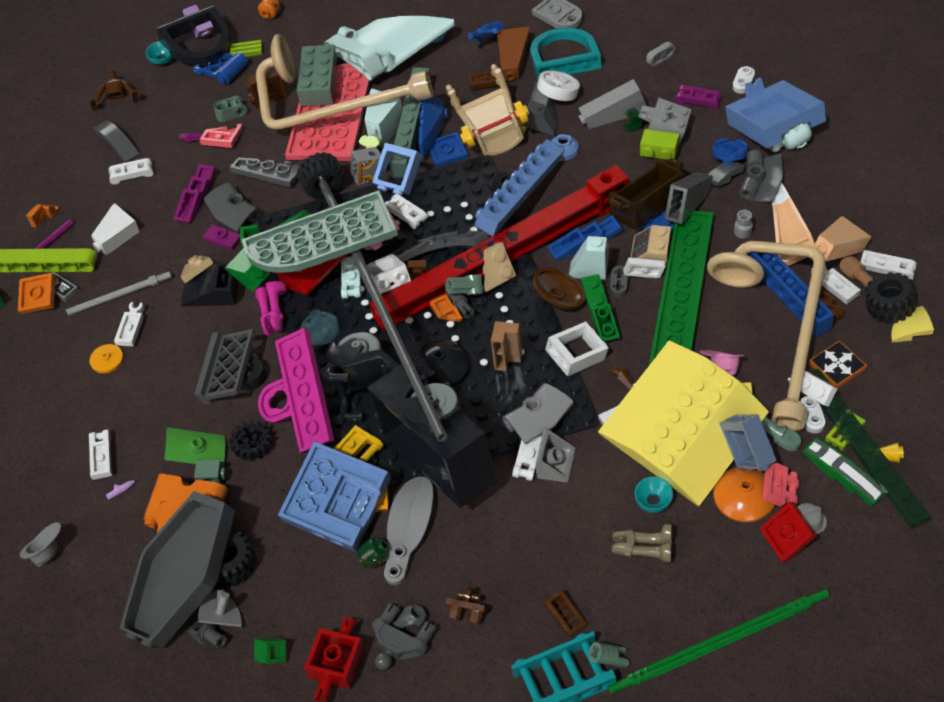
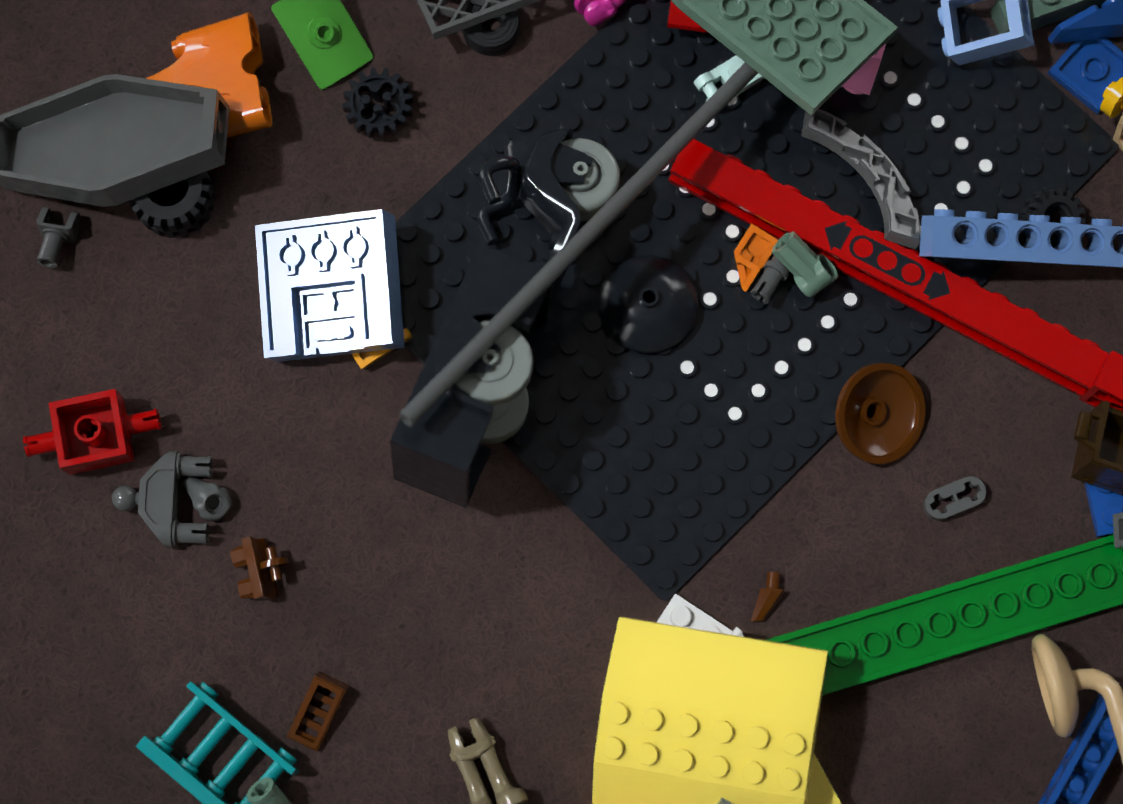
camera: 55 degrees right, 25 degrees up
(210, 471) = (293, 80): sand green brick -> none
(219, 609) = (92, 231): light grey shield -> none
(269, 650) = (69, 335): green panel -> none
(303, 391) = (477, 133): dark pink plate -> none
(322, 327) = (621, 82): clear light blue tile -> none
(356, 441) = (431, 257): yellow plate -> none
(373, 552) = (277, 391): dark green head -> none
(388, 270) = (770, 109): white window -> none
(405, 210) = (917, 79): white plate -> none
(407, 525) = (341, 412): light grey plant -> none
(417, 267) = (794, 173): reddish brown plate -> none
(496, 266) = (866, 293): tan wing -> none
(506, 344) = (711, 387): medium nougat piece -> none
(527, 456) = (556, 522): white plate -> none
(538, 412) = (639, 520): light grey panel -> none
(554, 457) = (564, 567): light grey slope -> none
(565, 360) = (747, 485): white window -> none
(571, 242) = (1014, 399): blue slope -> none
(591, 258) = (968, 434): light aqua slope -> none
(599, 308) = (876, 497): green slope -> none
(644, 268) = (1002, 539): white plate -> none
(652, 243) = (1049, 517): tan slope -> none
(653, 487) = (554, 733): teal piece -> none
(726, 361) = (875, 738): bright pink piece -> none

